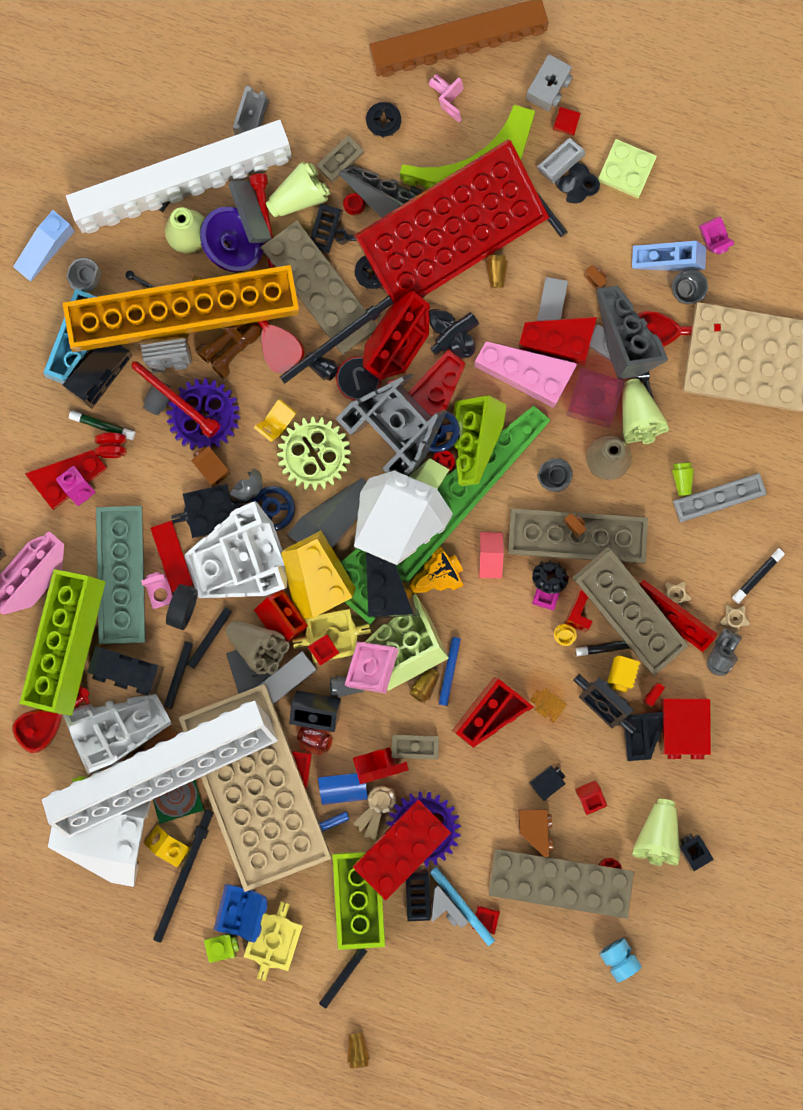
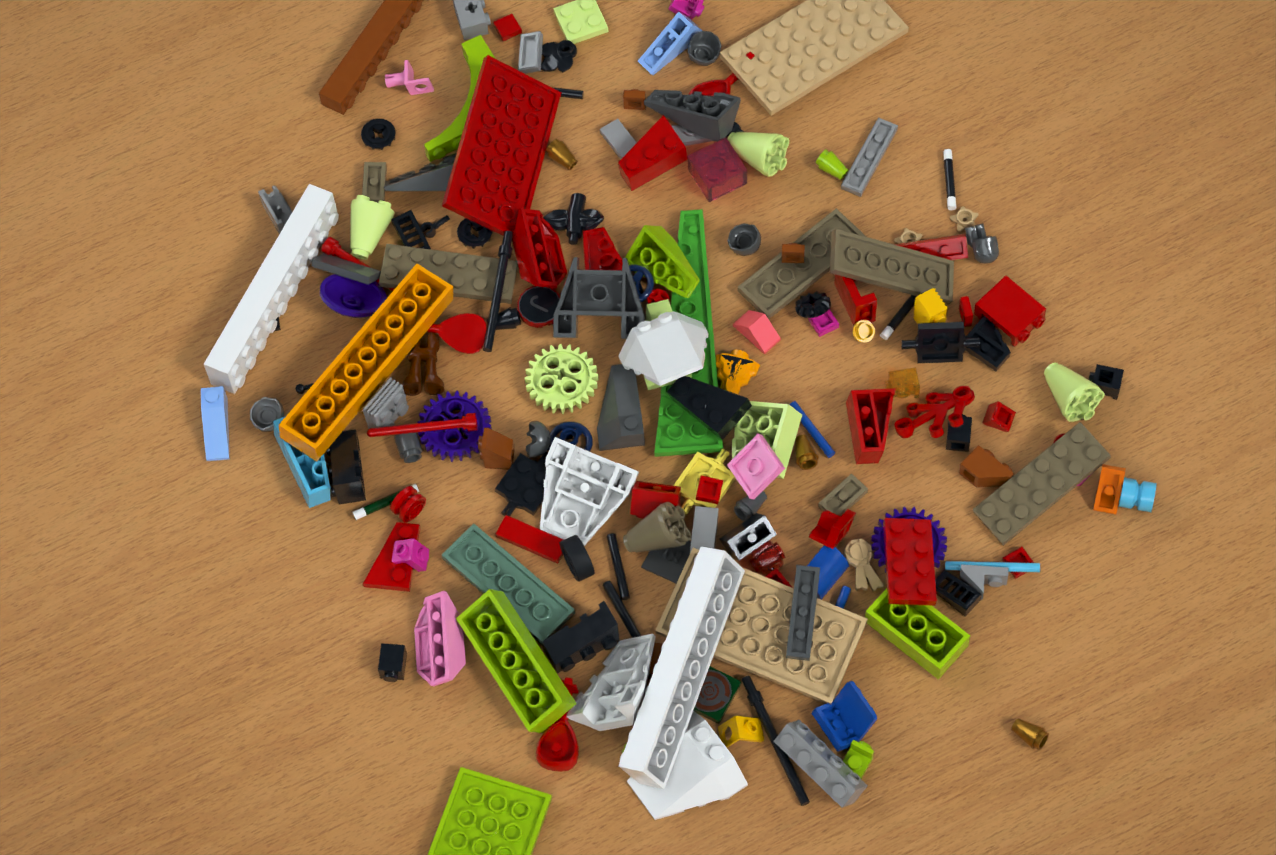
camera: 45 degrees left, 20 degrees down
(152, 583) = (539, 563): bright pink bracket -> none
(183, 230) = (311, 319): yellowish green cone -> none
(191, 927) = (820, 763): none -> light grey brick
(276, 420) = (511, 379): yellow bracket -> none
(276, 942) = (894, 719): light yellow plate -> none
(288, 811) = (803, 612): none -> dark grey plate
(316, 576) = (650, 446): yellow wedge -> none
(342, 978) = (964, 696): black bar -> none
(353, 204) = (415, 201): red plate -> none
(526, 371) = (652, 195): bright pink wedge -> none
(547, 753) = (959, 399): none -> red plant
(605, 464) = (767, 194): dark tan cone -> none
(605, 935) = (1109, 489): none -> orange slope

